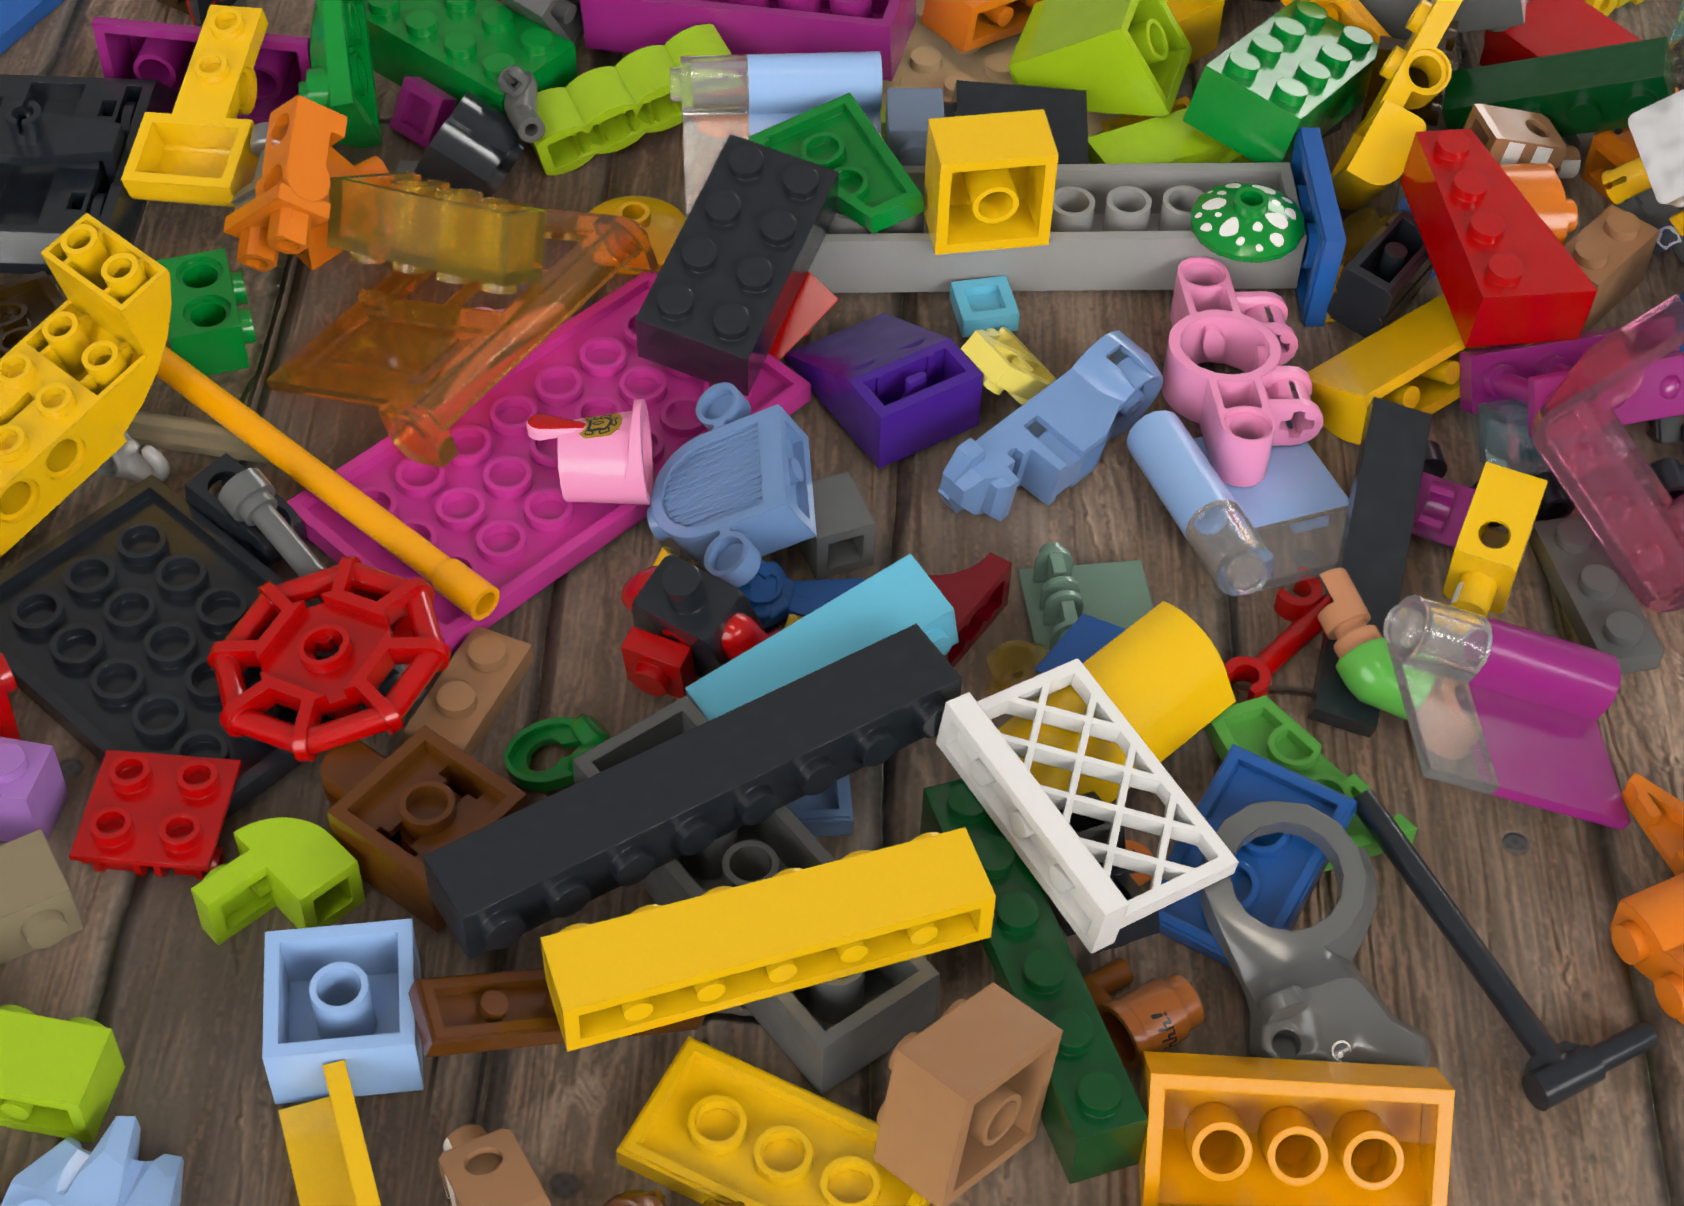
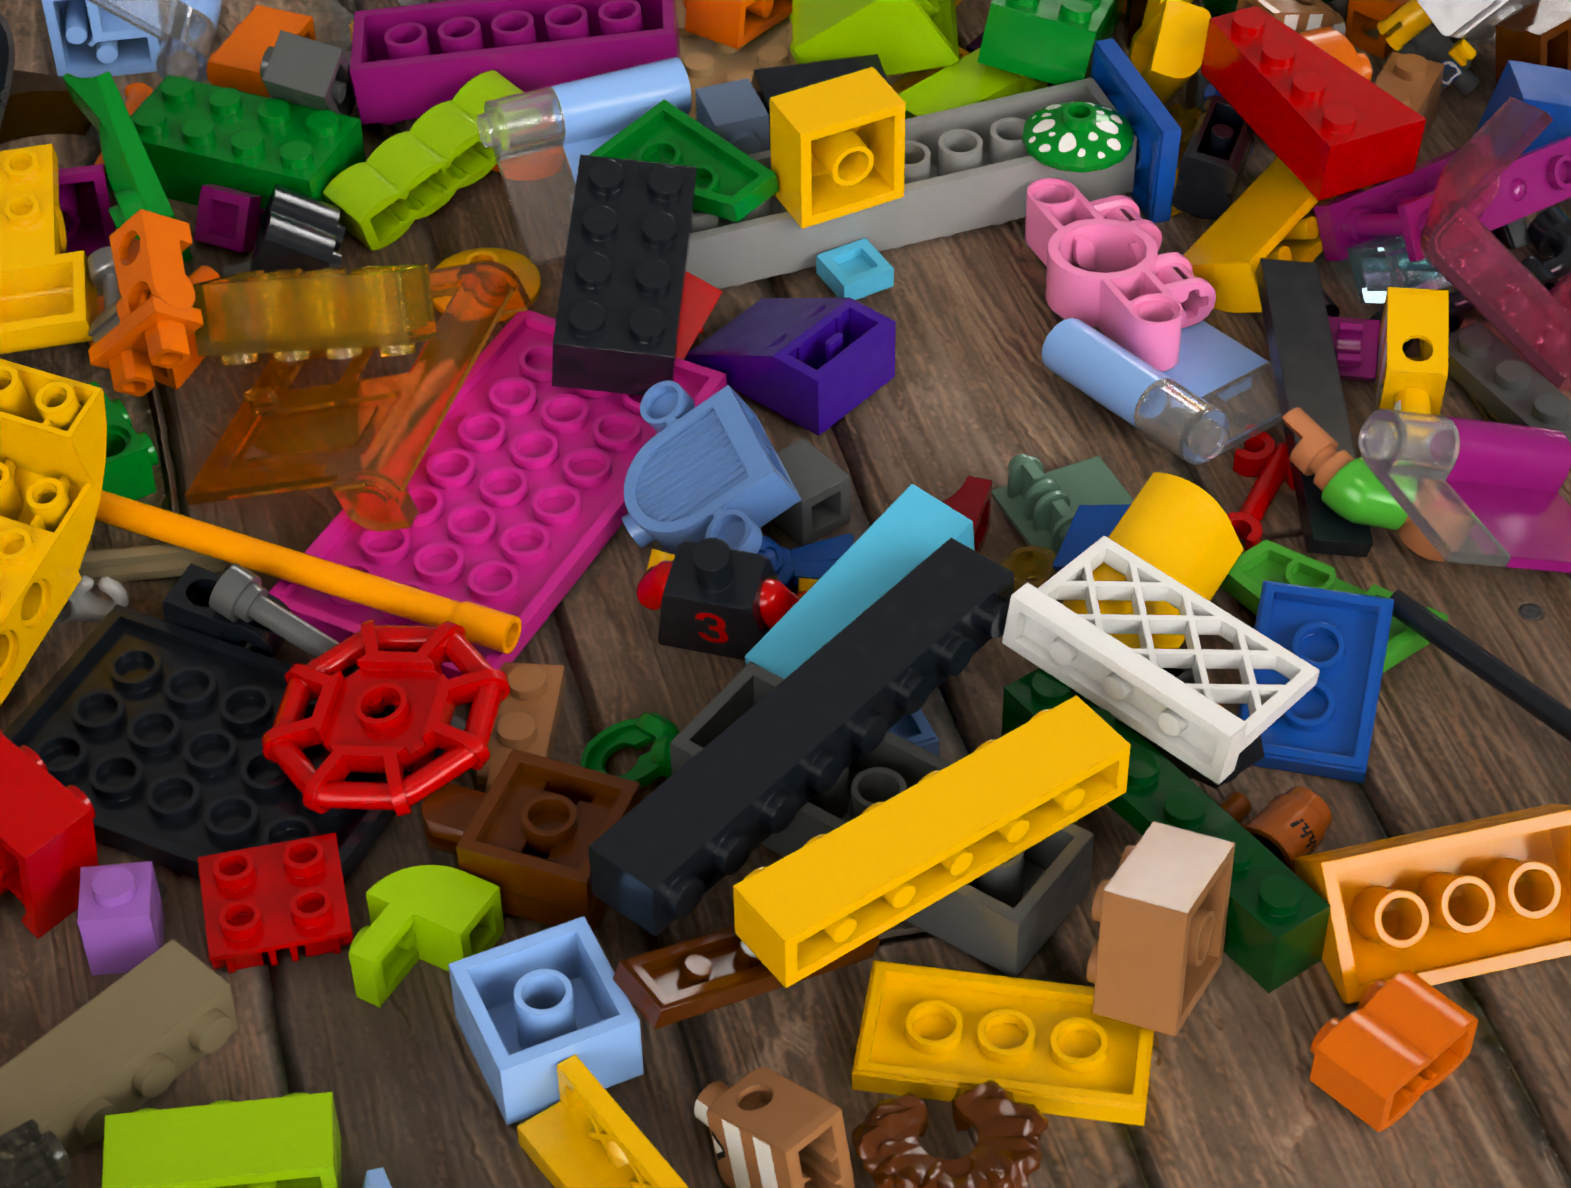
camera: 15 degrees left, 5 degrees down
(521, 102) = (333, 183): dark grey arm -> none
(602, 455) = (570, 475): bright pink hat -> none
(657, 663) = (696, 650): red plate -> none
(1007, 364) = (917, 321): light yellow wing -> none
(1056, 433) = (976, 364): medium blue piece -> none
(1301, 982) = (1399, 764): dark grey animal -> none

